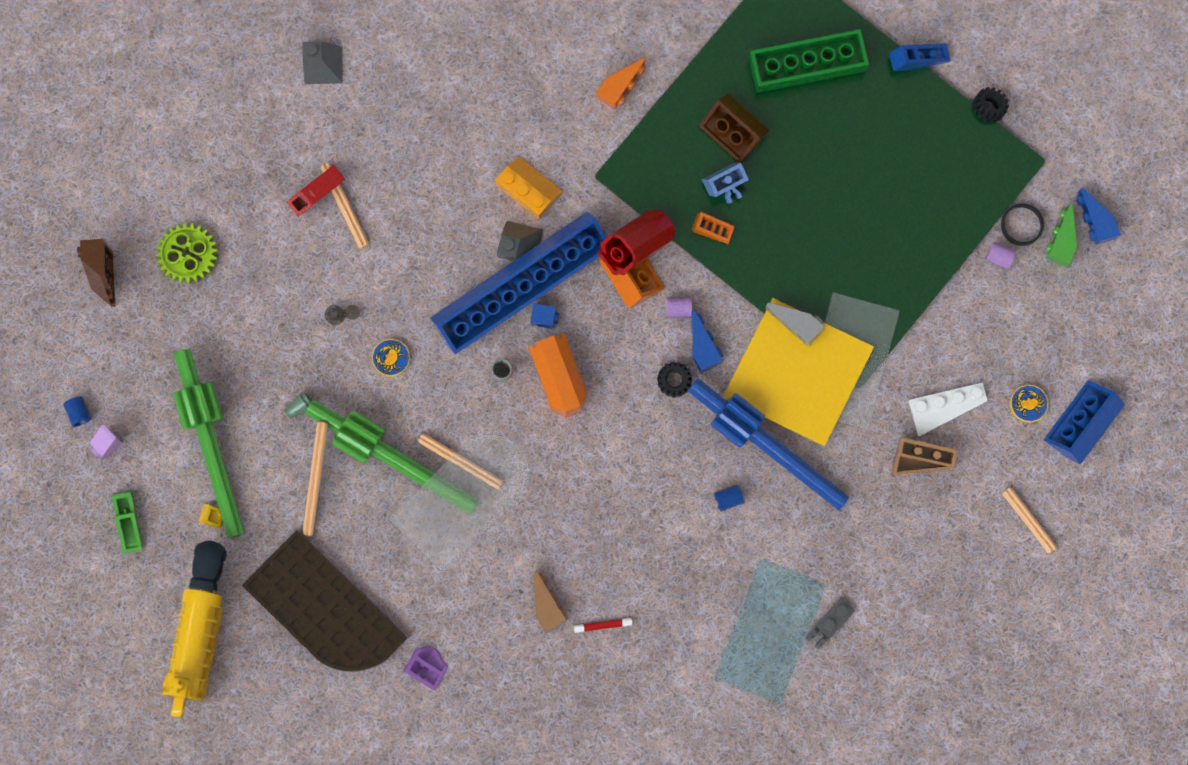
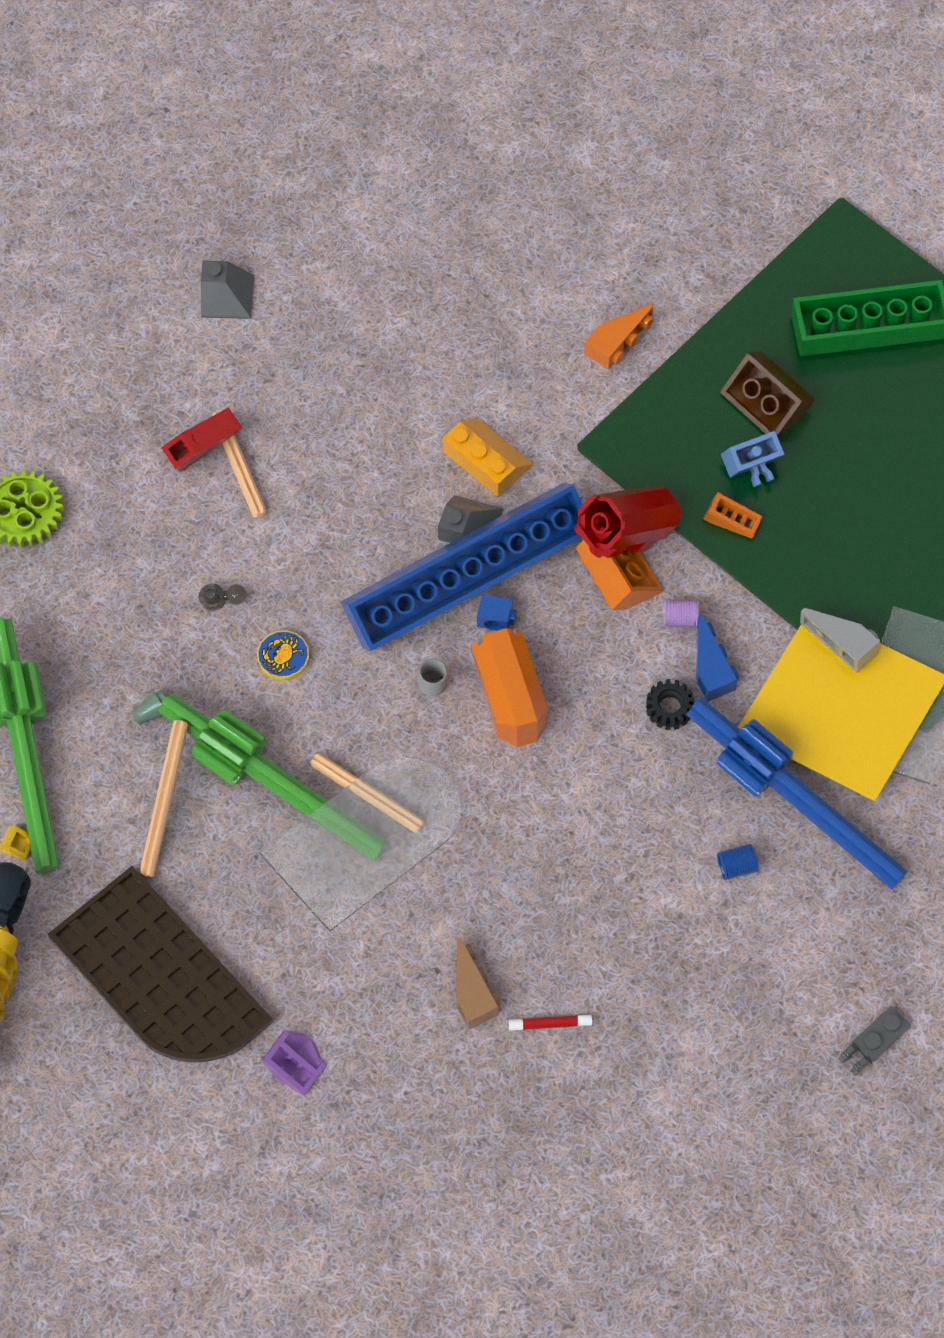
camera: 10 degrees right, 15 degrees down
(770, 631) = (787, 1048): clear light blue piece -> none

